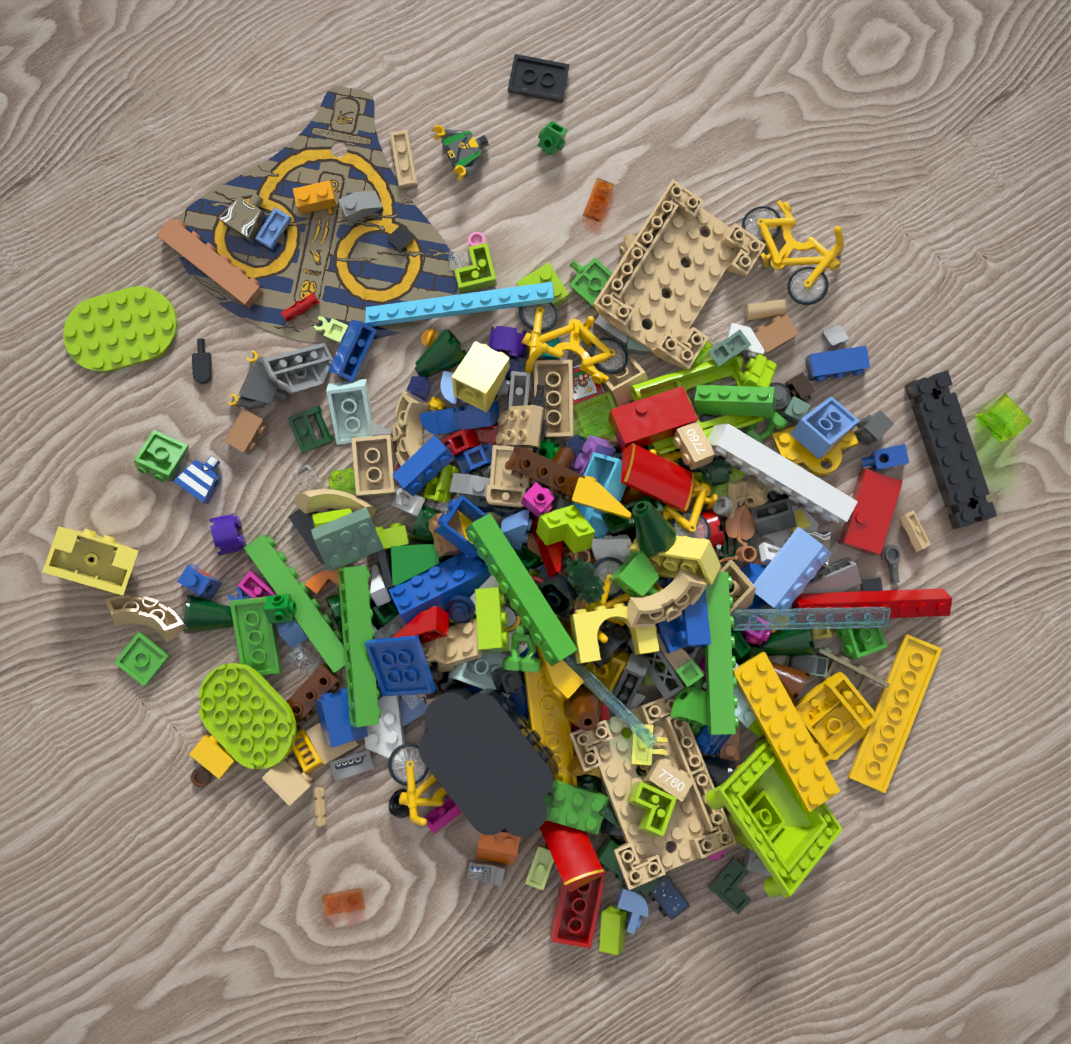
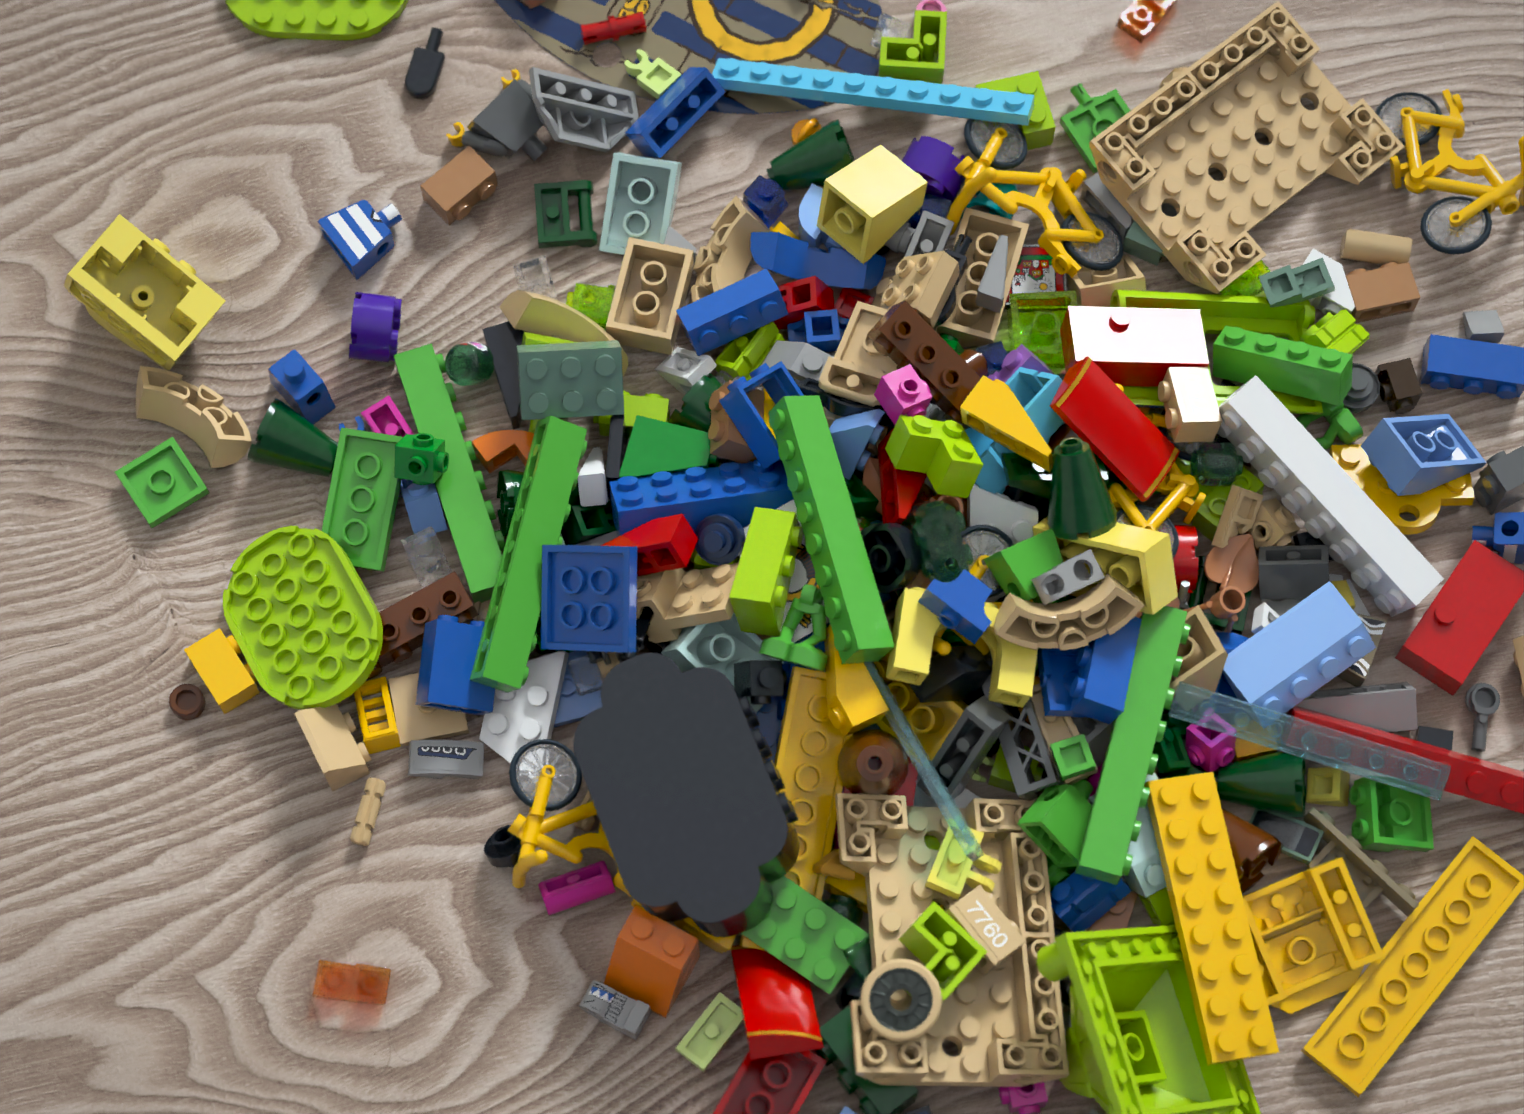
camera: 20 degrees right, 15 degrees down
(160, 456) = (309, 182): bright green plate -> none
(287, 539) = (469, 363): none -> clear green head
(563, 403) = (992, 286): none -> light grey slope
(606, 616) = (959, 604): none -> blue brick
(643, 857) = (883, 983): none -> wheel
(659, 579) = (1067, 577): none -> light grey leg
(723, 506) = (1211, 519): light grey tile -> none
(795, 410) = (1380, 407): sand green brick -> none

